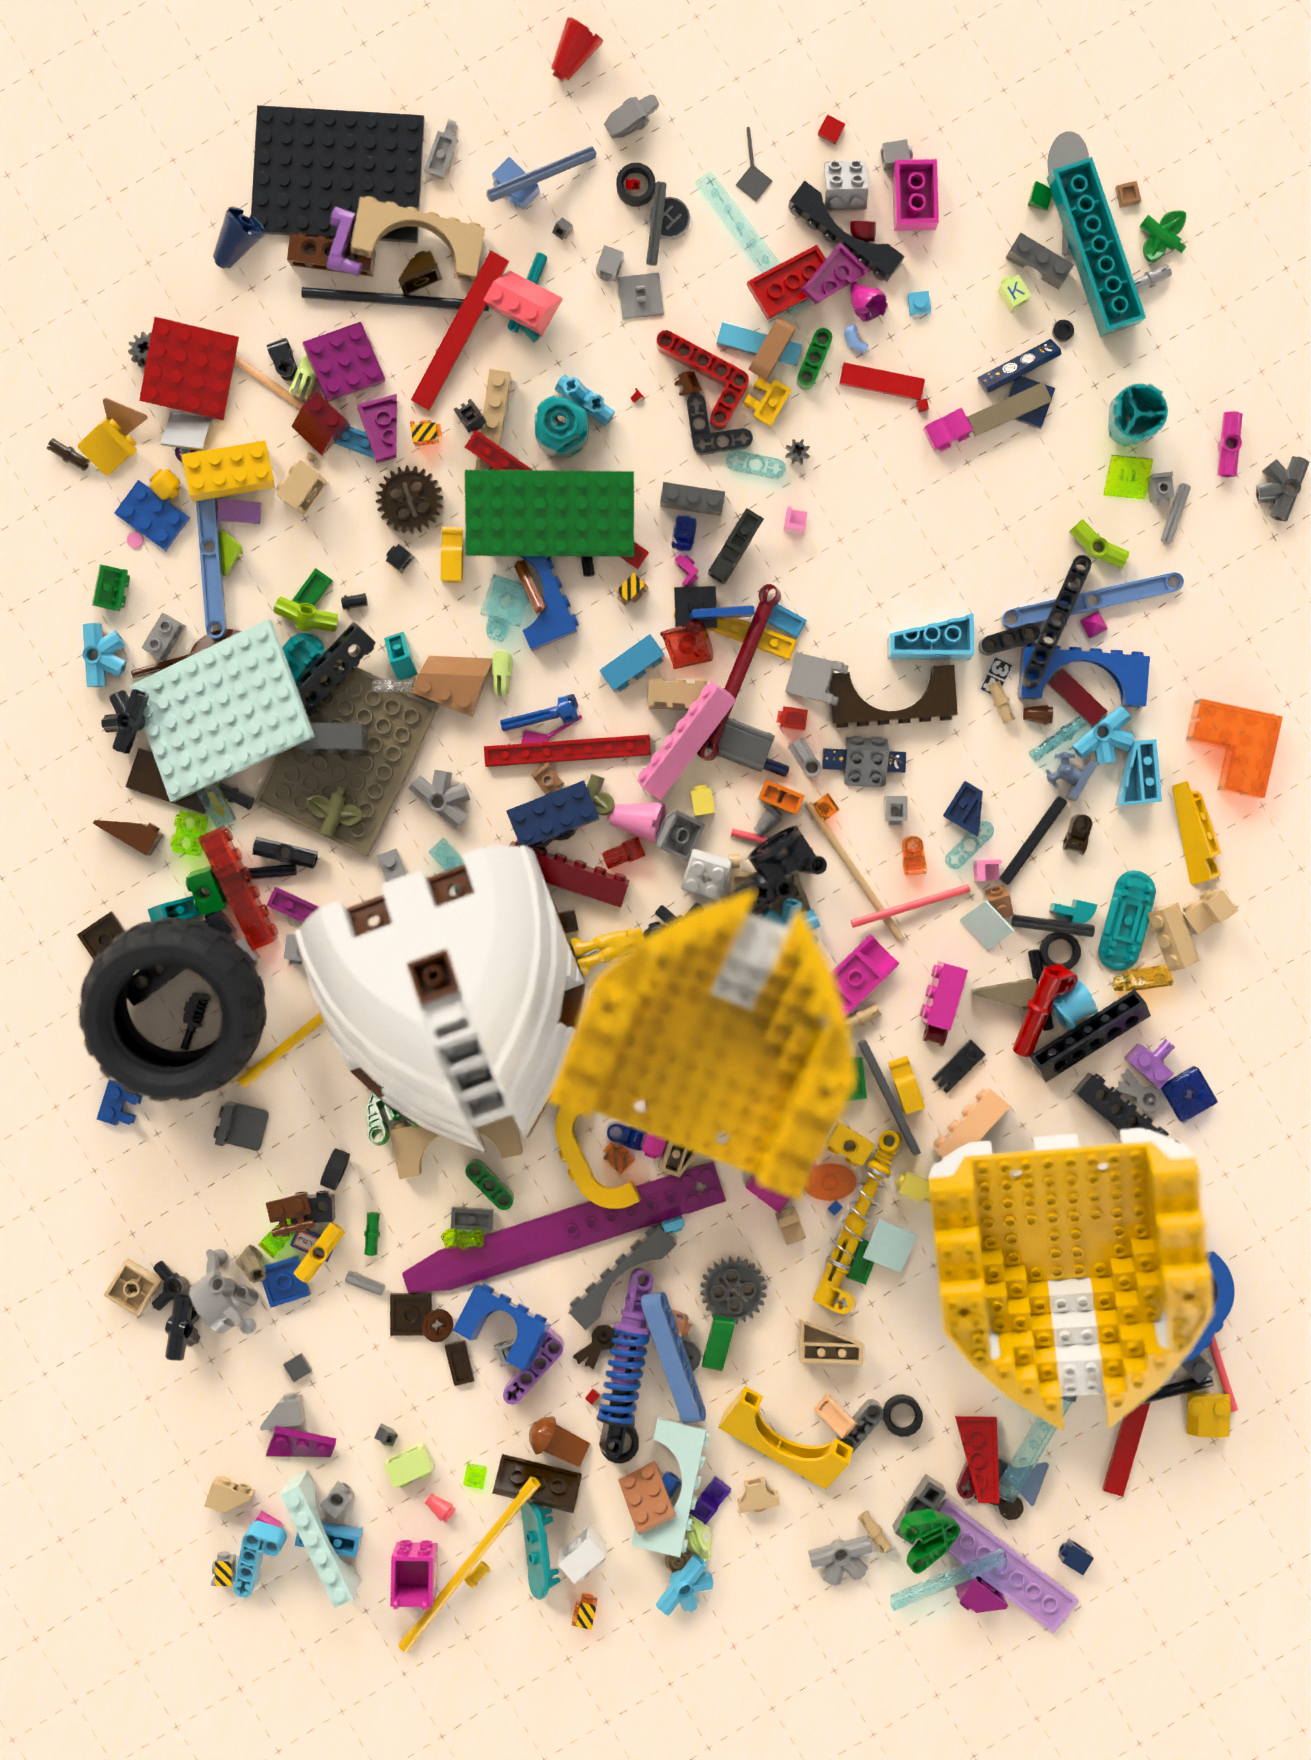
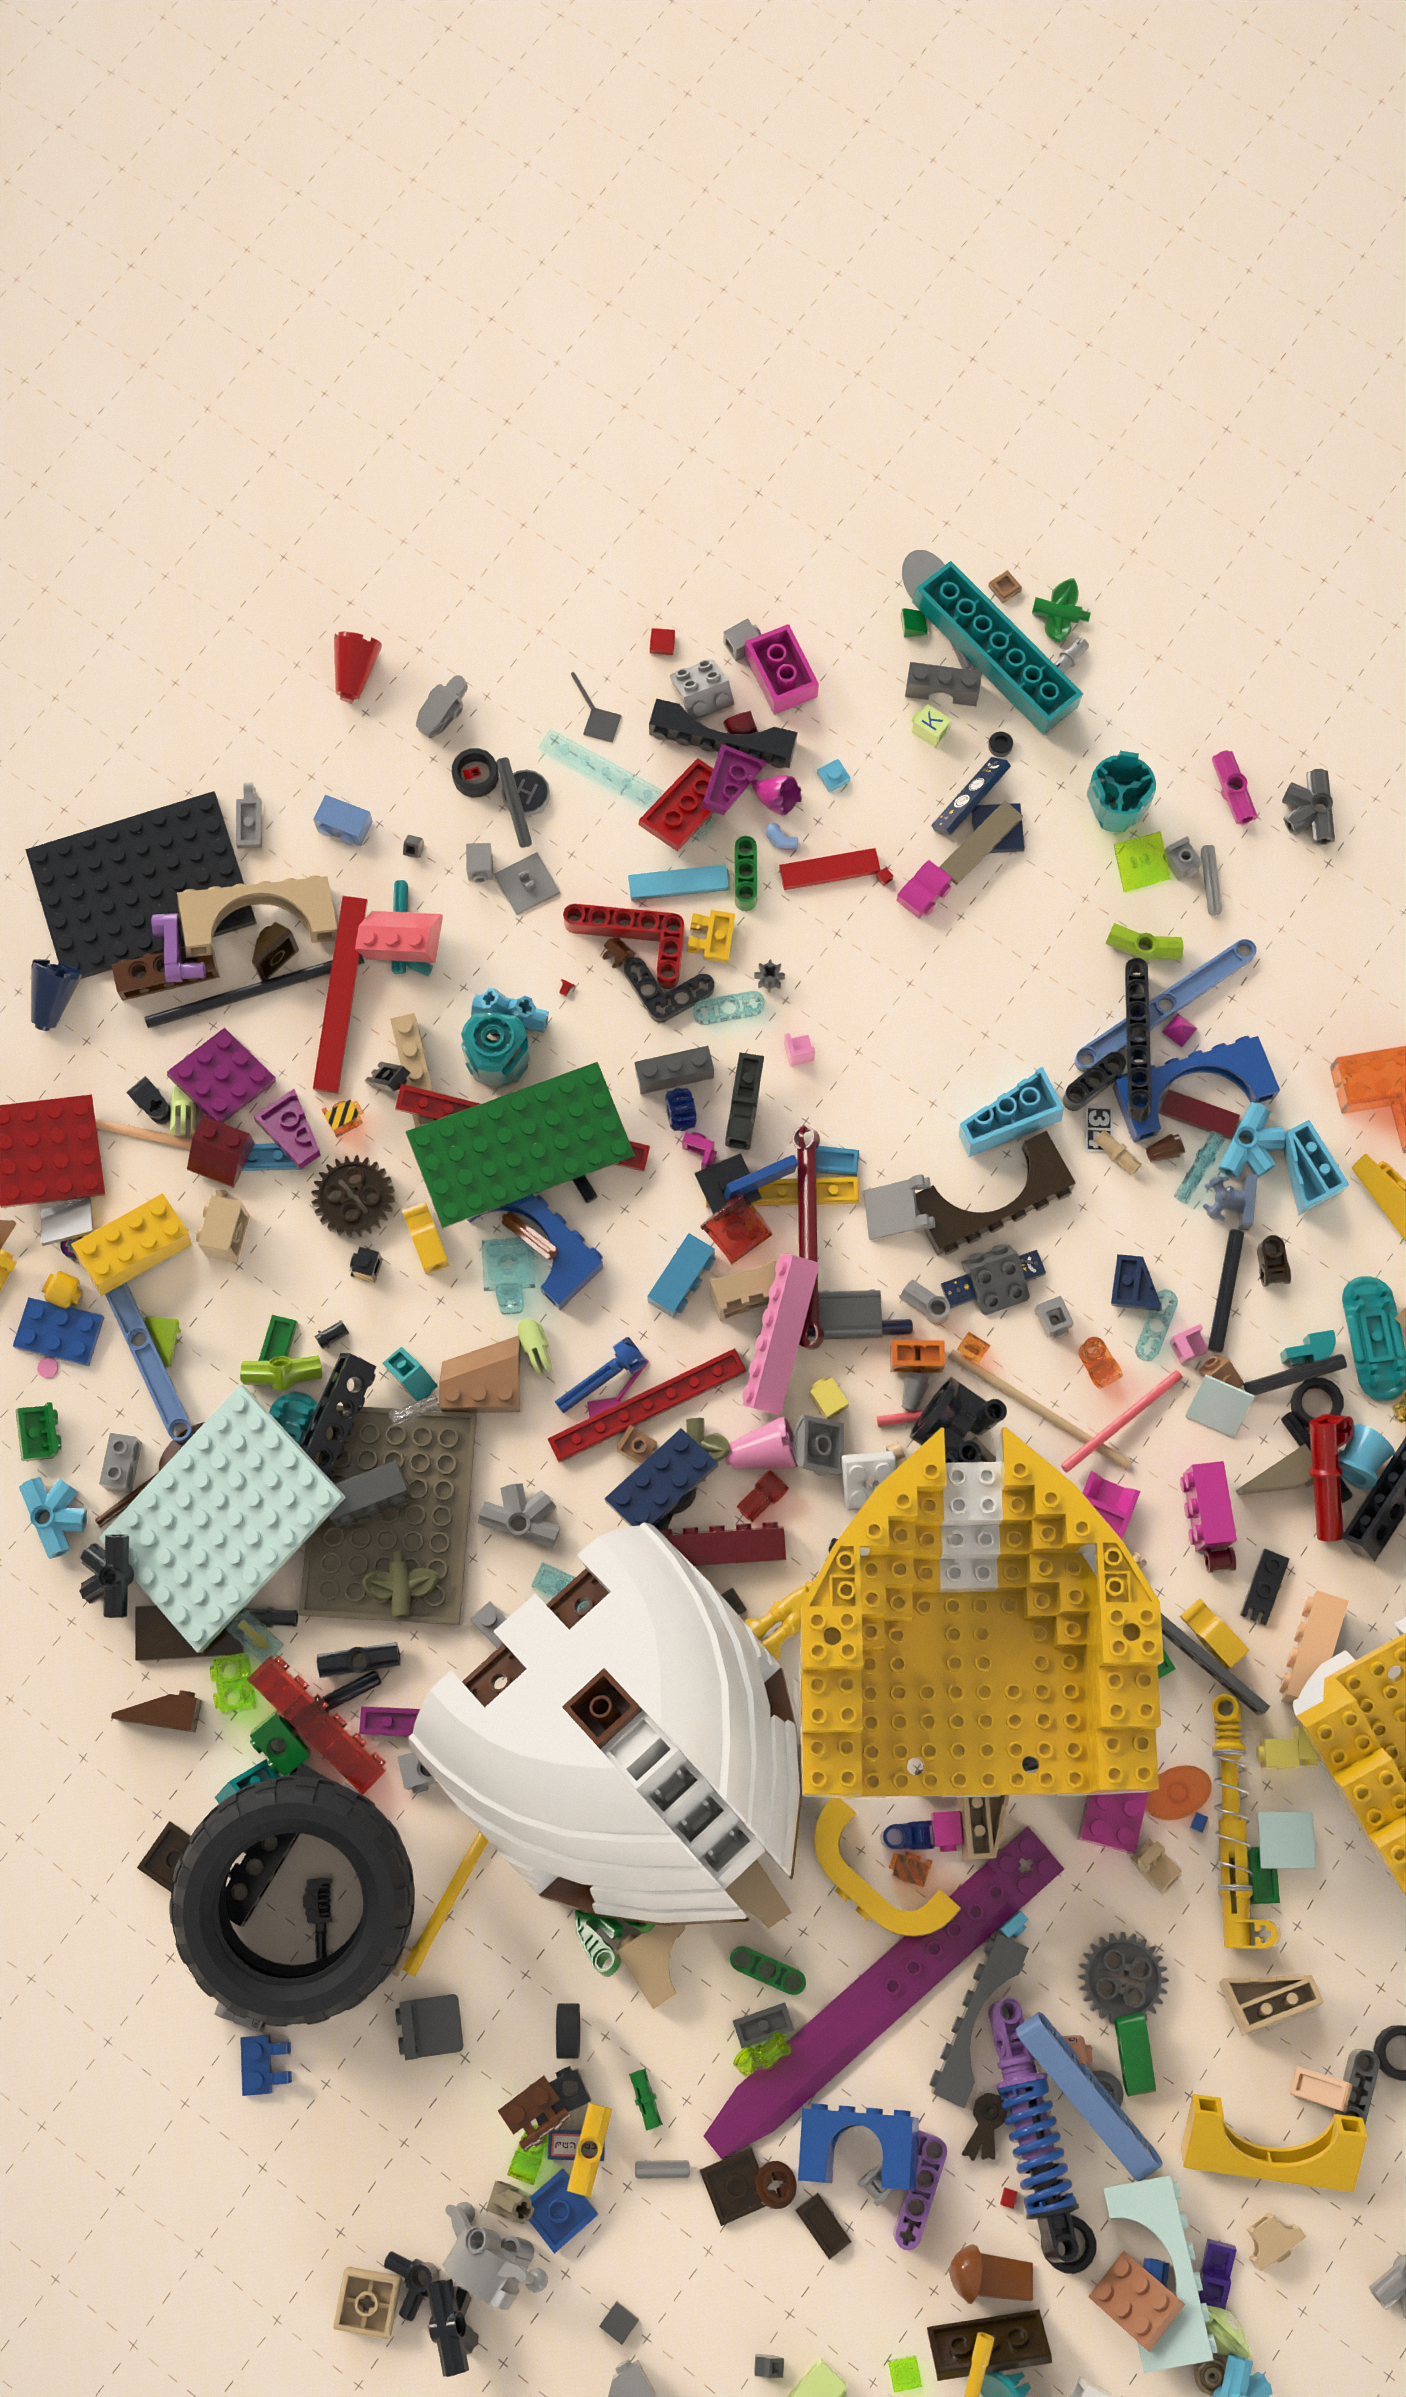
camera: 25 degrees left, 15 degrees down
(239, 511) = (159, 1287): medium lavender tile -> none
(541, 174) = (367, 798): sand blue axle -> none
(631, 590) = (647, 1194): brick -> none
(772, 348) = (695, 879): medium nougat beam -> none
(792, 718) = (891, 1264): clear red brick -> none
(861, 1149) = (1196, 1730): yellow brick -> none

